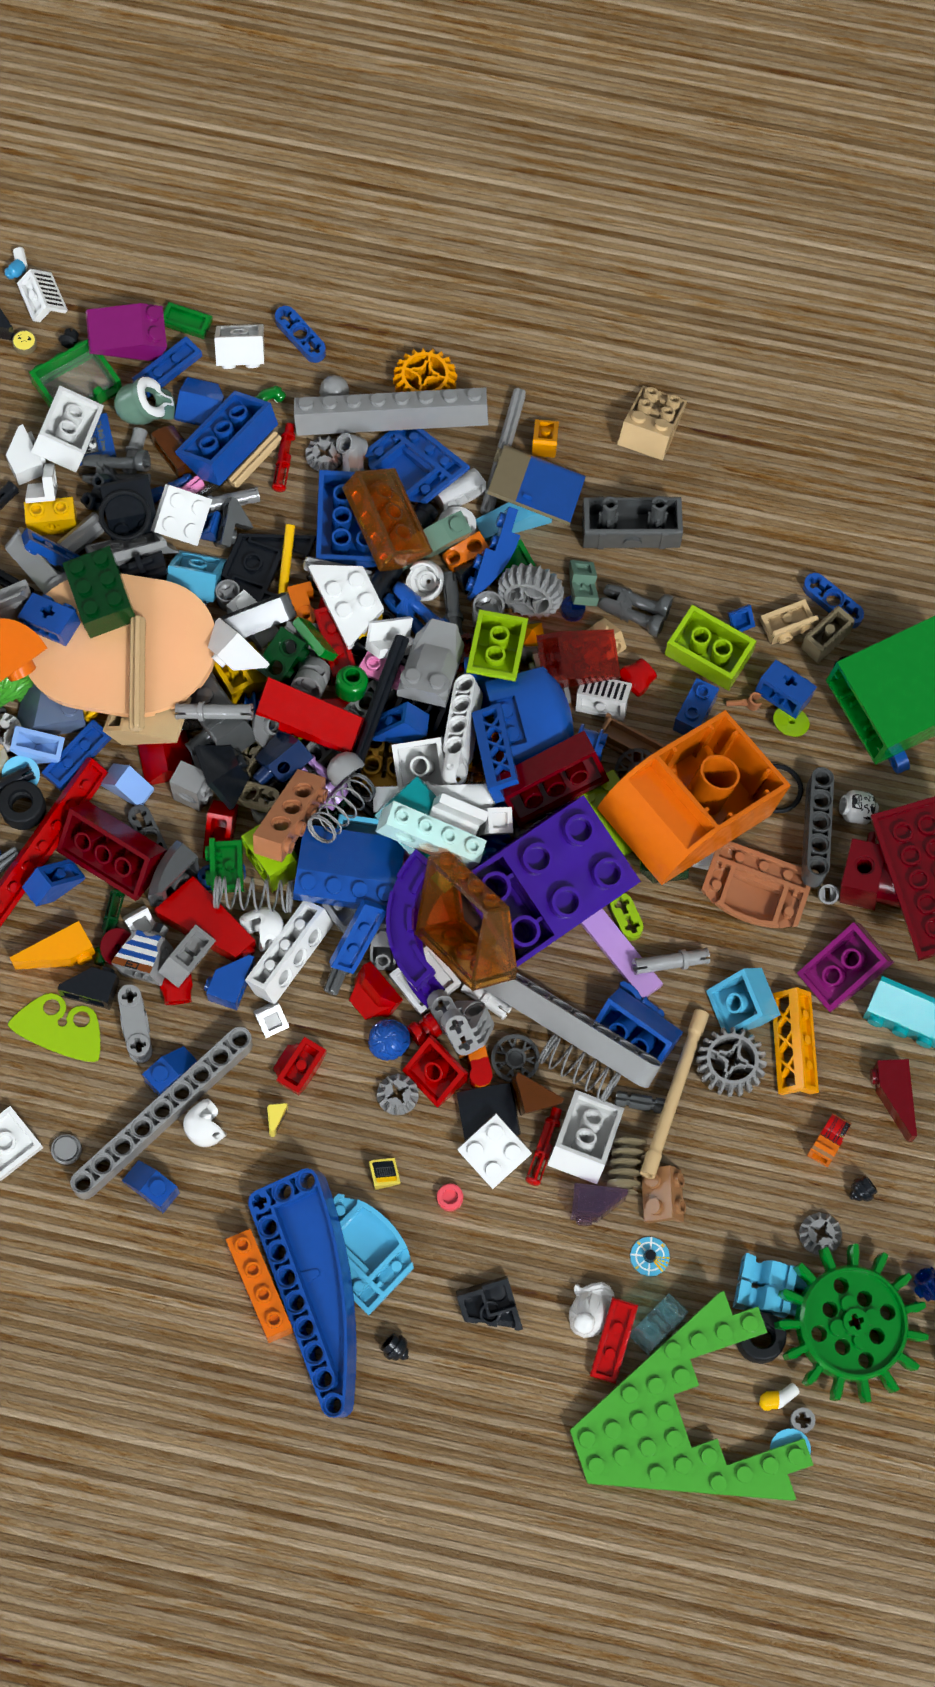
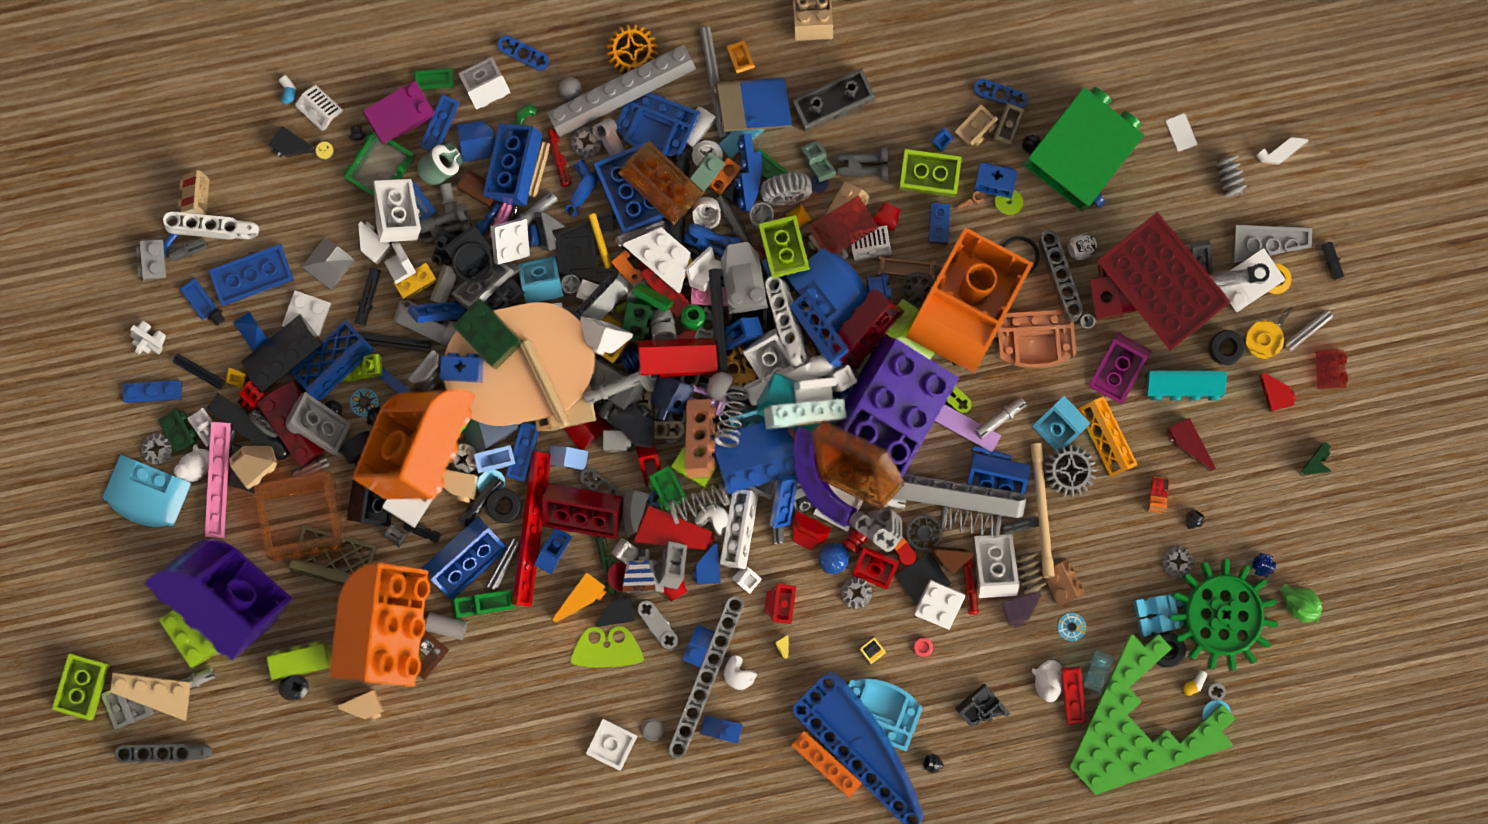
camera: 20 degrees left, 15 degrees up
(294, 498) = (585, 187): none -> blue arm

